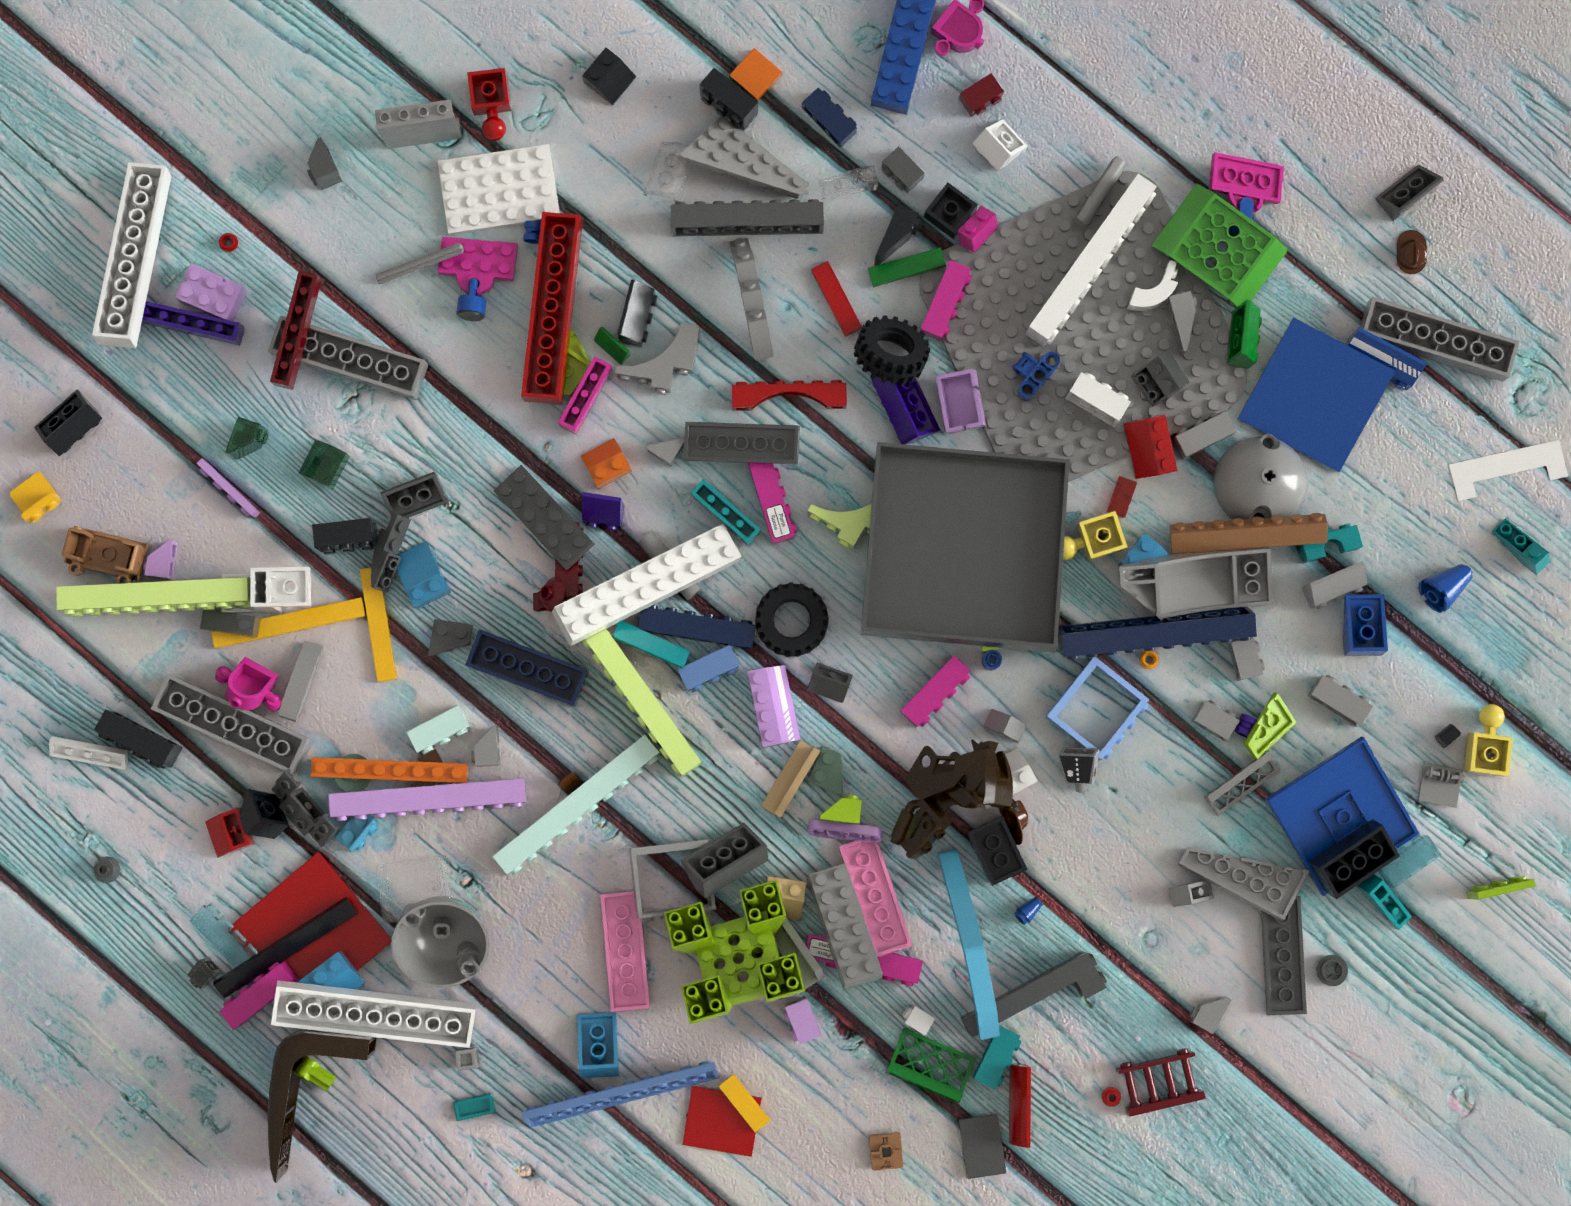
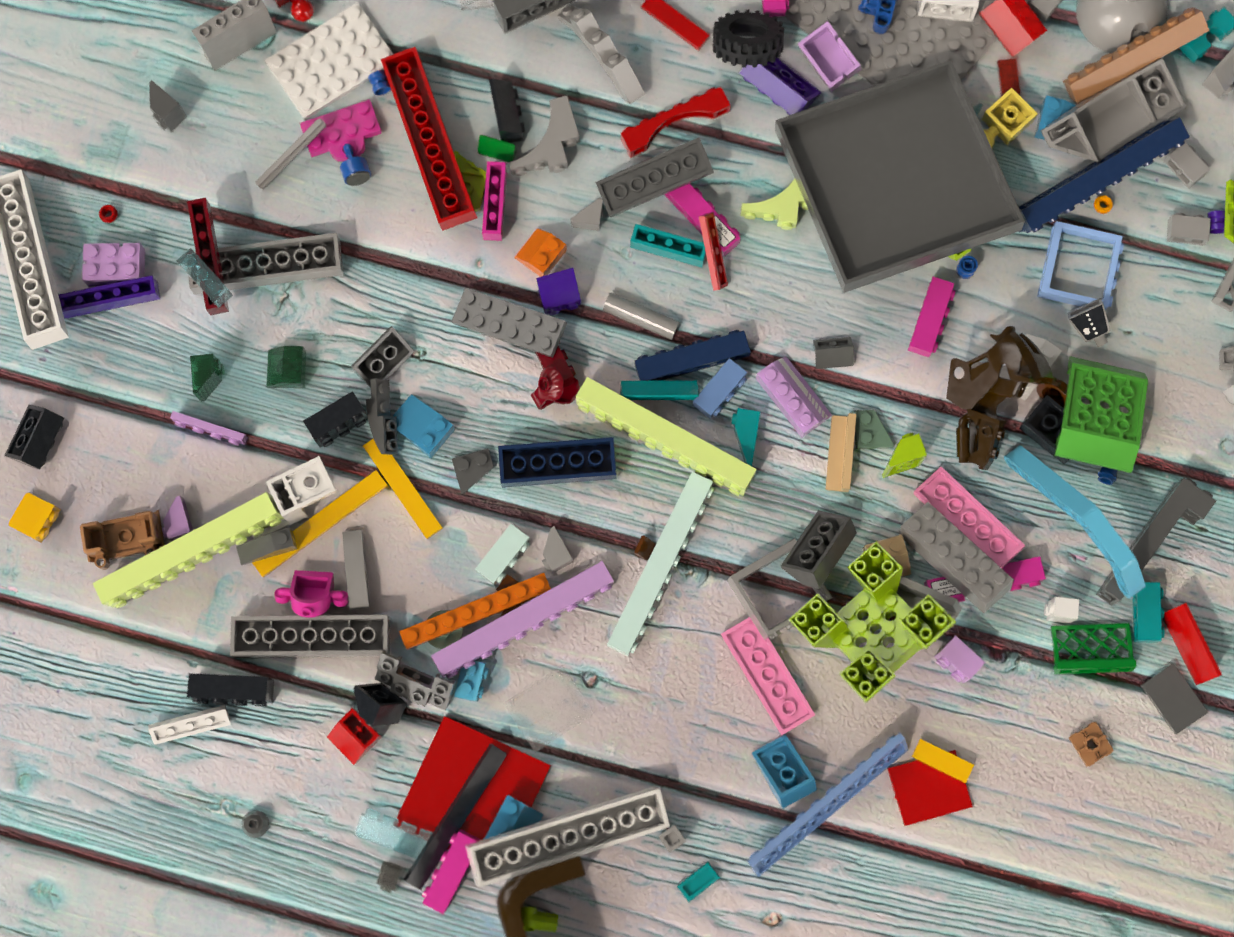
camera: 20 degrees left, 5 degrees down
(280, 352) = (204, 278): none -> clear light blue brick
(432, 940) = (596, 756): light grey piece -> none
(646, 584) = (630, 337): white brick -> none
(714, 717) = (746, 430): none -> teal slope
(762, 537) = (713, 251): none -> red tile
(787, 645) = (764, 335): black tyre -> none
(845, 831) = (912, 474): lavender beam -> none
(1005, 725) = (1006, 316): light grey slope -> none
(1029, 875) = (1097, 433): none -> bright green slope

